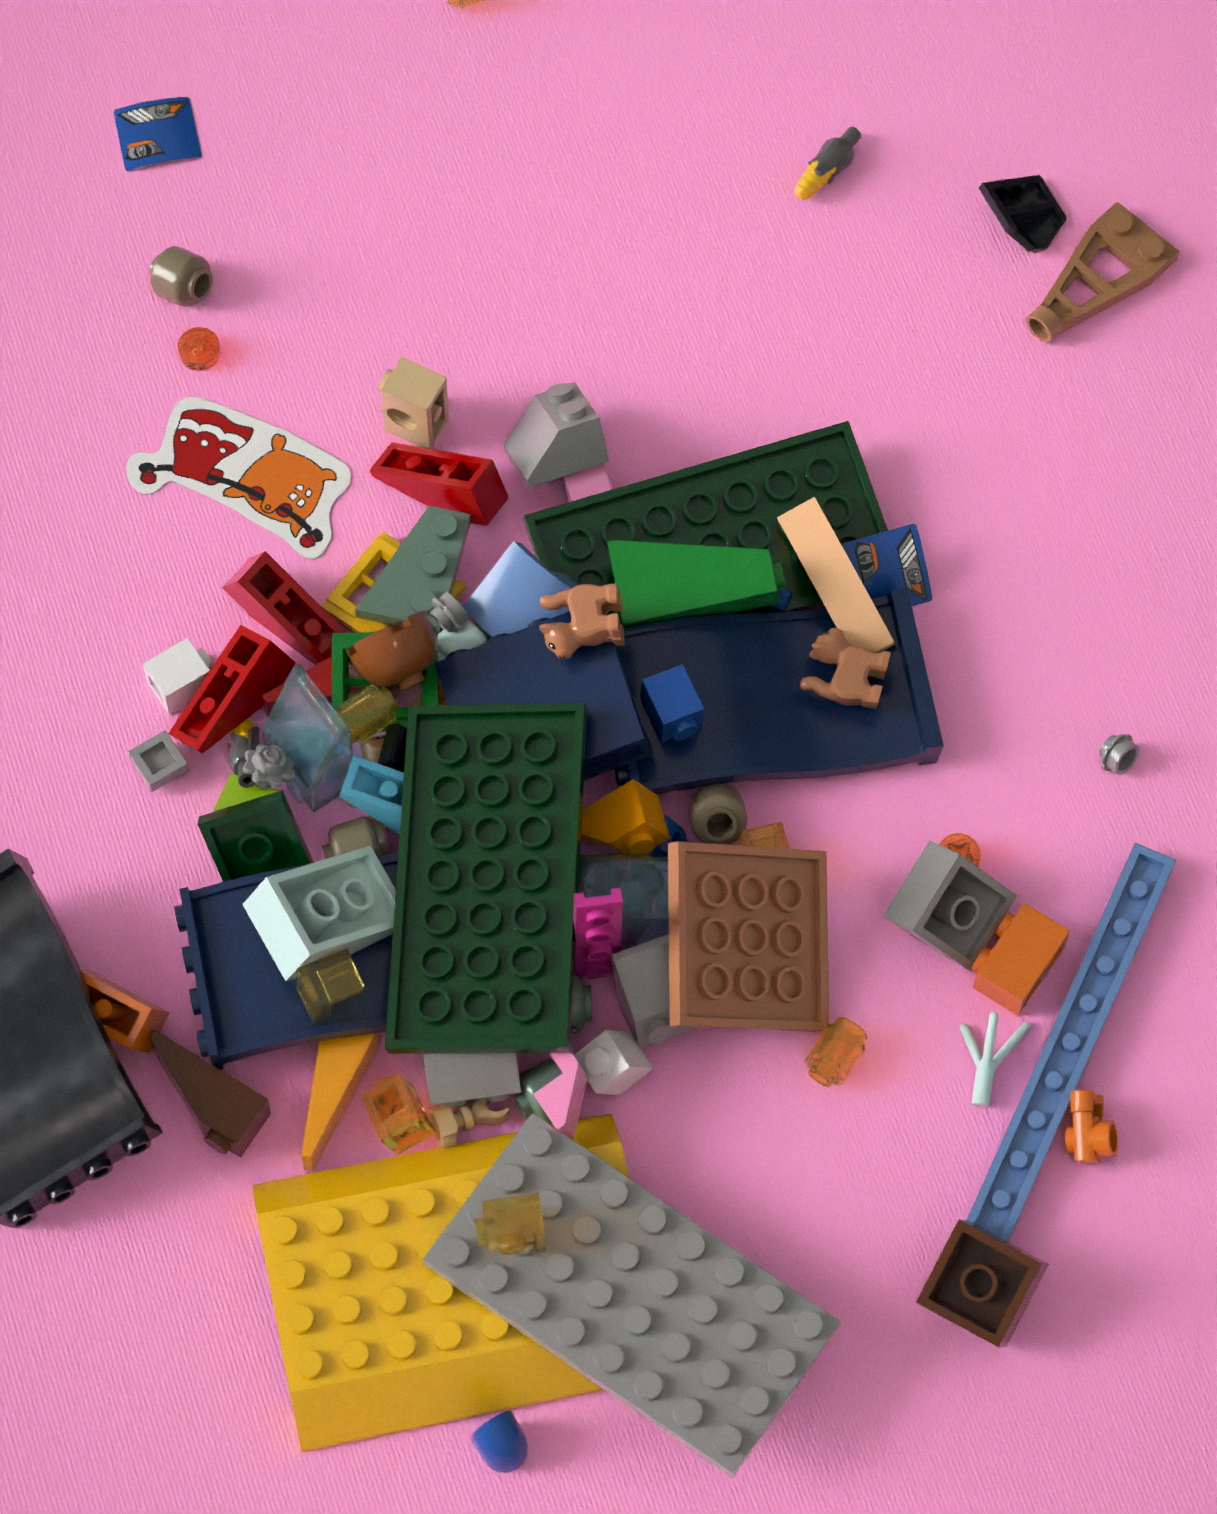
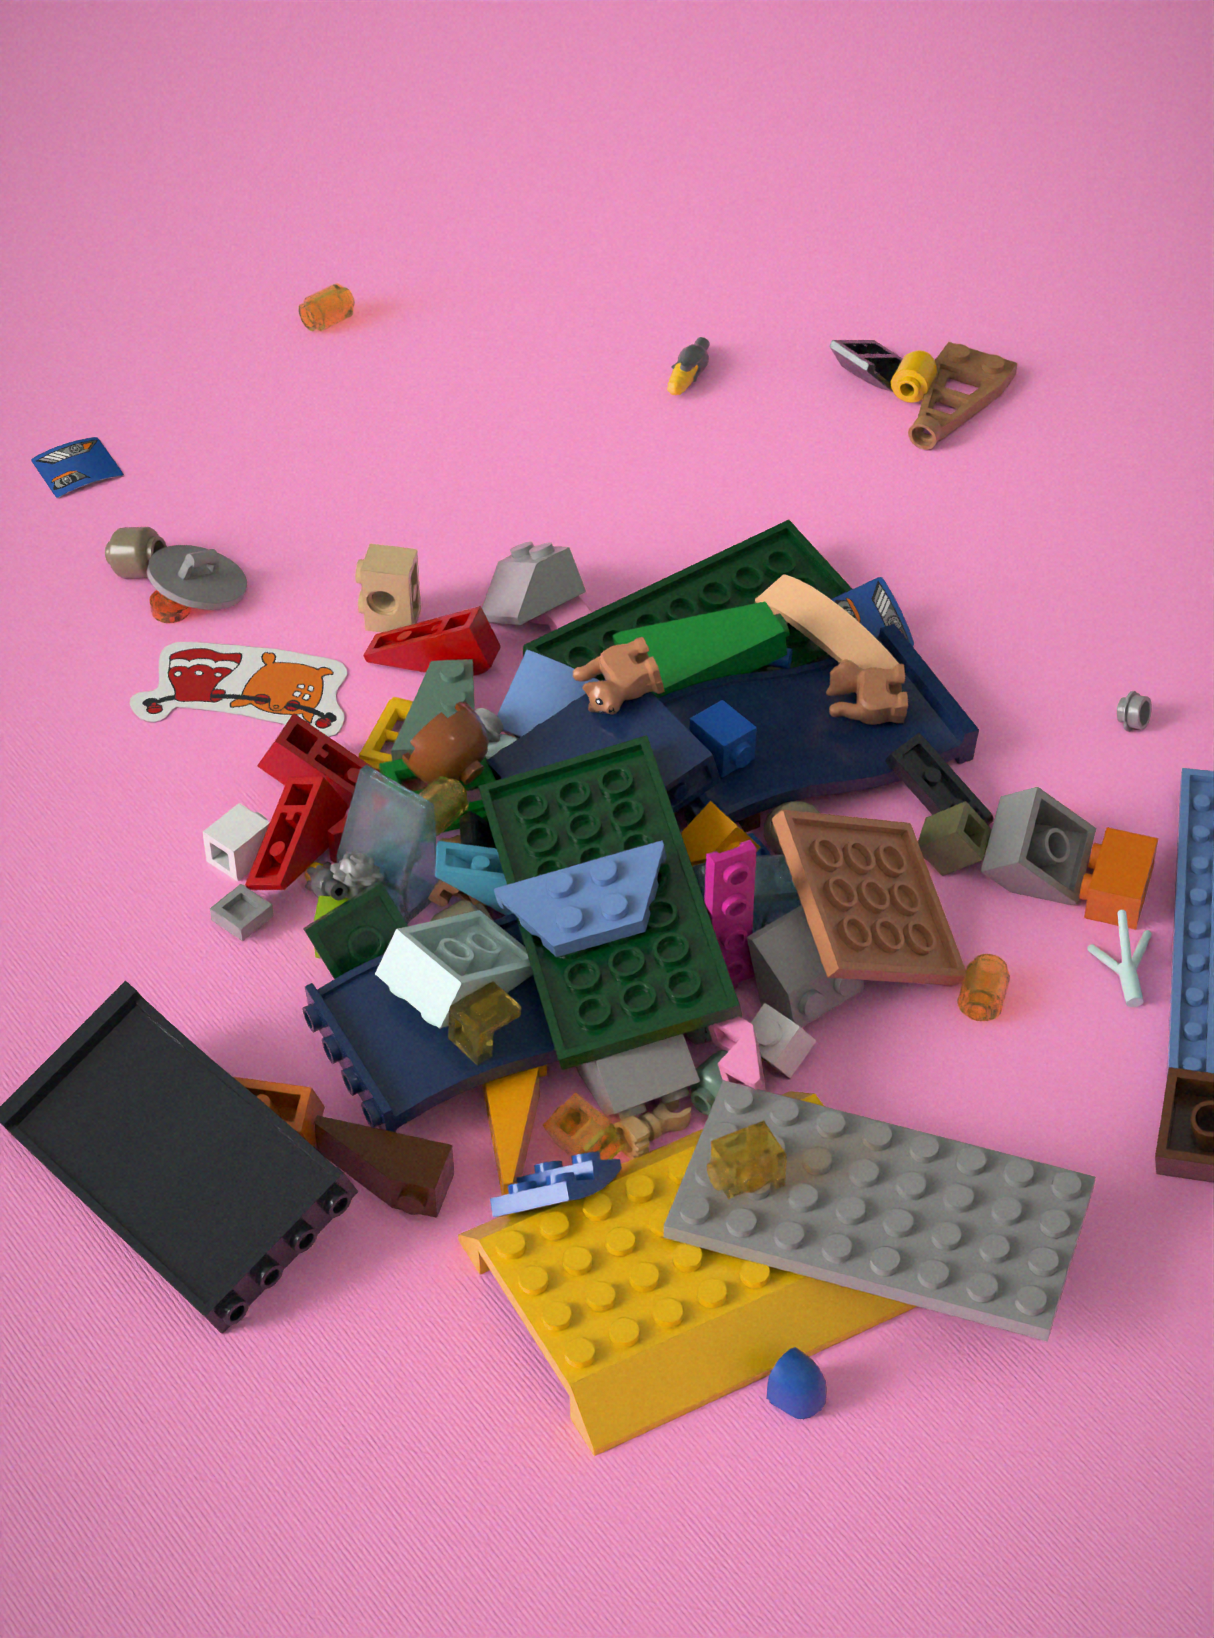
camera: 15 degrees left, 20 degrees down
(232, 325) = (197, 577): none -> light grey shield
(347, 1174) = (557, 1184): none -> slope
(466, 882) = (588, 900): none -> medium blue wing
(870, 870) = (954, 838): none -> olive brick
(879, 800) = (932, 778): none -> black hinge
(1060, 243) = (914, 376): none -> yellow brick

